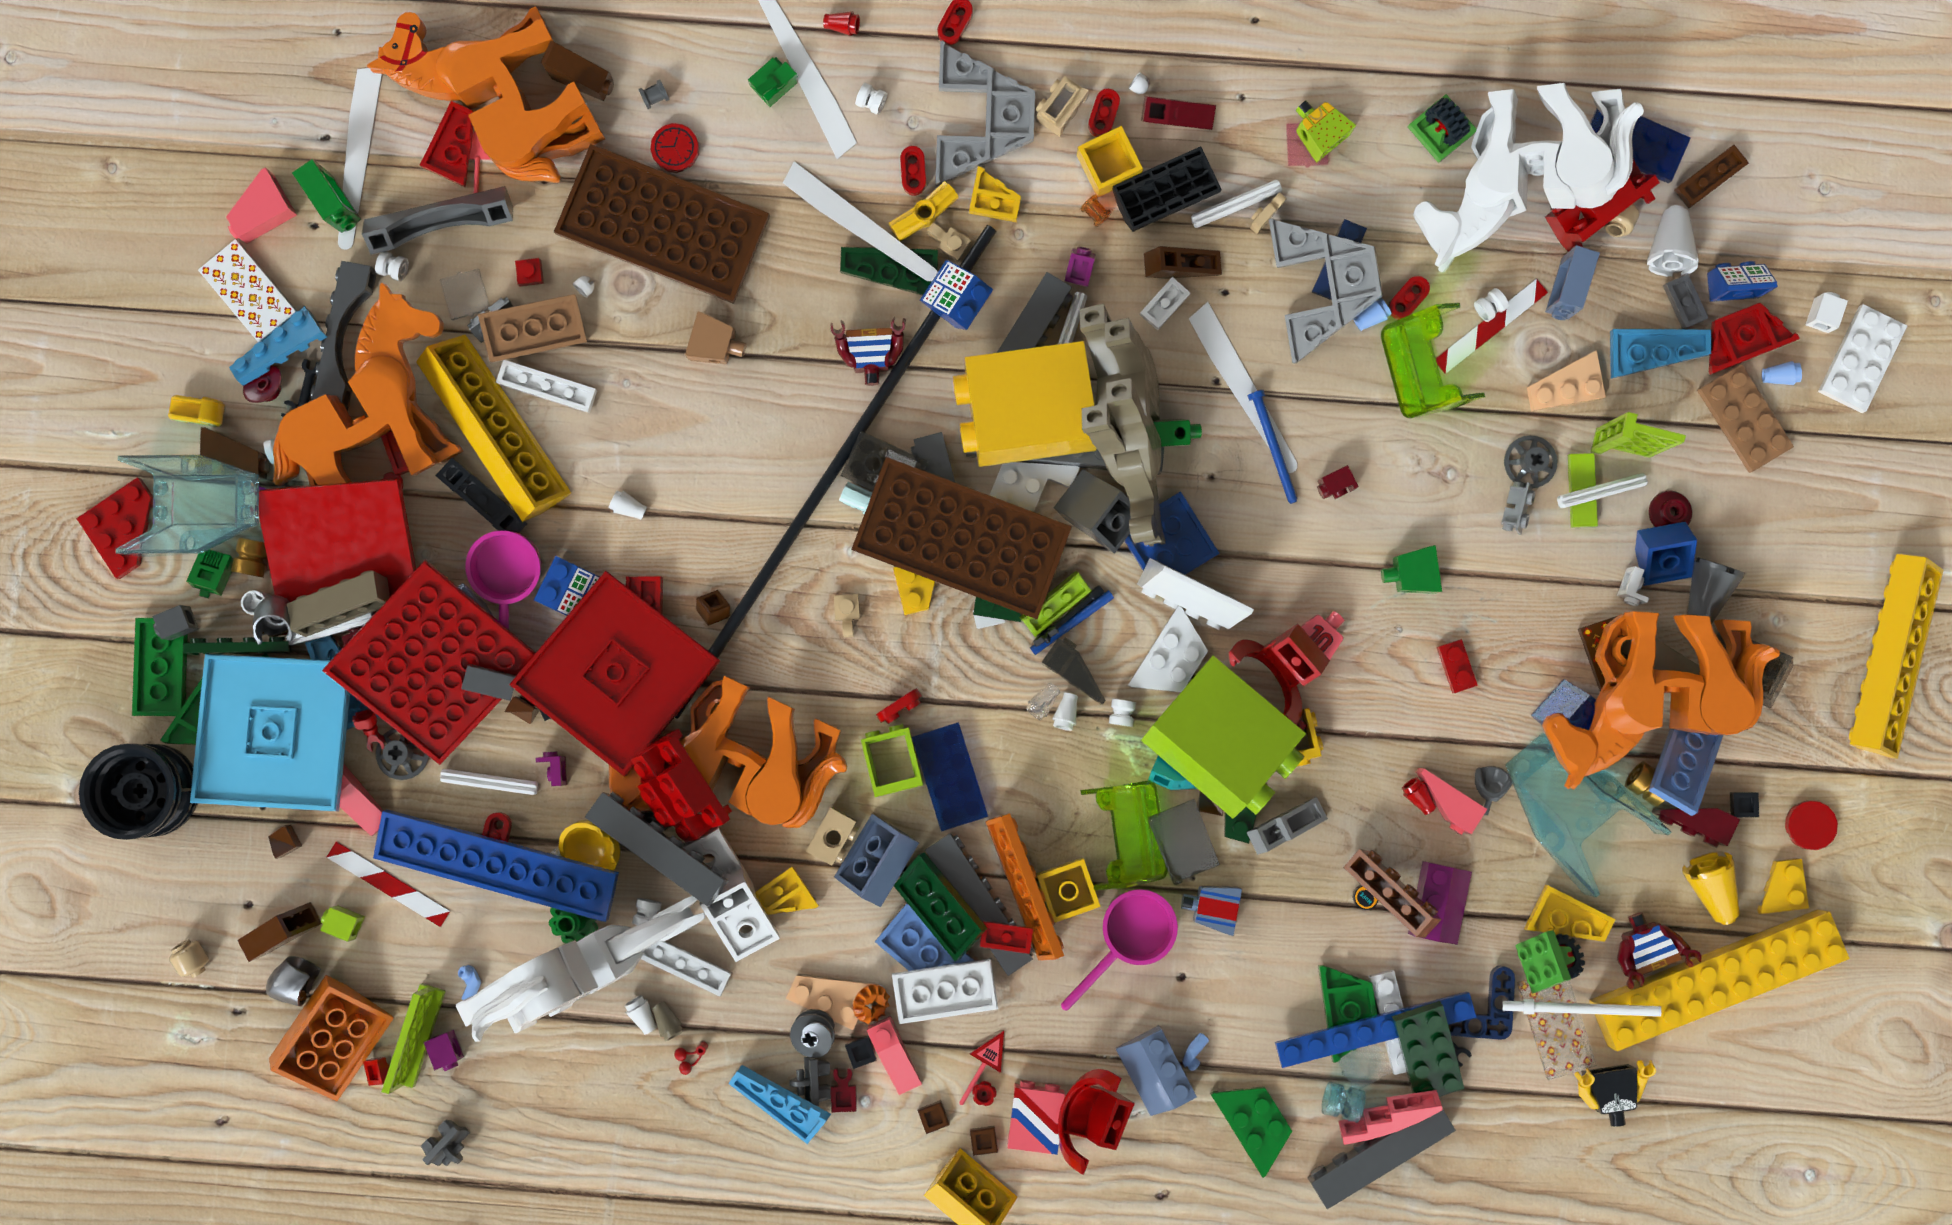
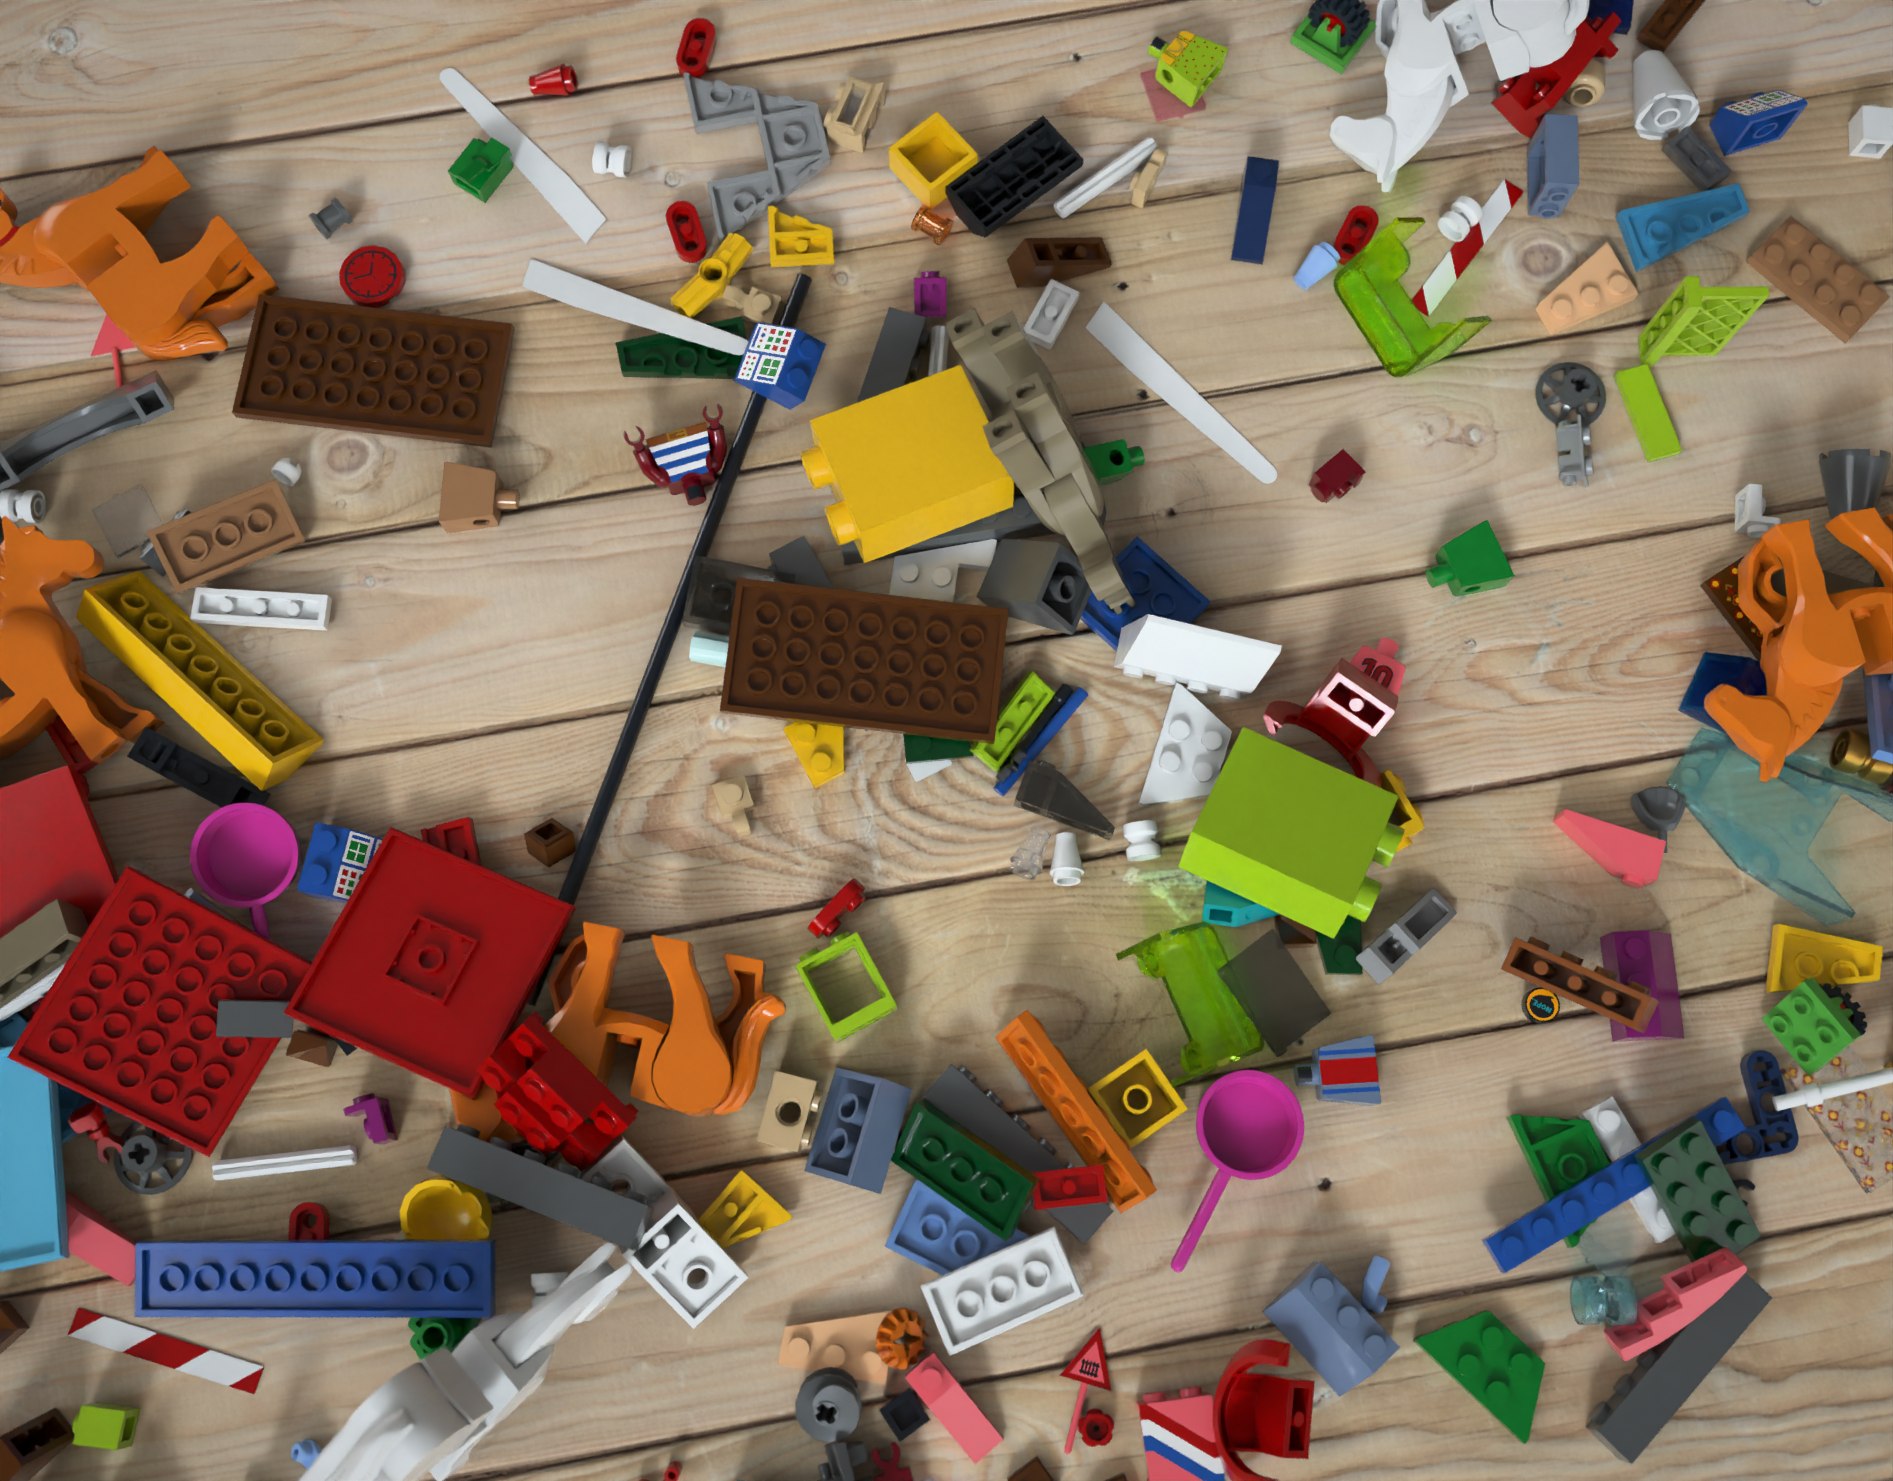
camera: 20 degrees left, 10 degrees down
(451, 145) = (75, 340): red wing -> none
(529, 272) = (210, 472): red plate -> none
(569, 67) = (202, 201): reddish brown slope -> none
(626, 505) = (402, 736): white cone -> none
(641, 1014) = (573, 1444): white cone -> none
(668, 1024) = (614, 1446): dark tan cone -> none
(687, 966) = (623, 1354): white plate -> none
(950, 776) = (931, 987): clear blue plate -> none
(1102, 113) = (908, 112): red plate -> none
(1139, 84) = (946, 67): white hinge -> none
(1178, 113) = (1001, 87): dark red slope -> none
(1273, 445) = (1200, 398): blue bar -> none
(1351, 276) = (1278, 220): light grey wing -> none
(1419, 795) = (1567, 848): red cone -> none
(1457, 666) = (1562, 670): red plate -> none
(1602, 490) = (1673, 404): white axle -> none
(1662, 503) = (1758, 421): dark red piece -> none
(1666, 553) = (1781, 460): blue slope -> none
(1746, 336) = (1784, 182): red wing -> none
(1785, 373) = (1846, 214): light blue cone -> none

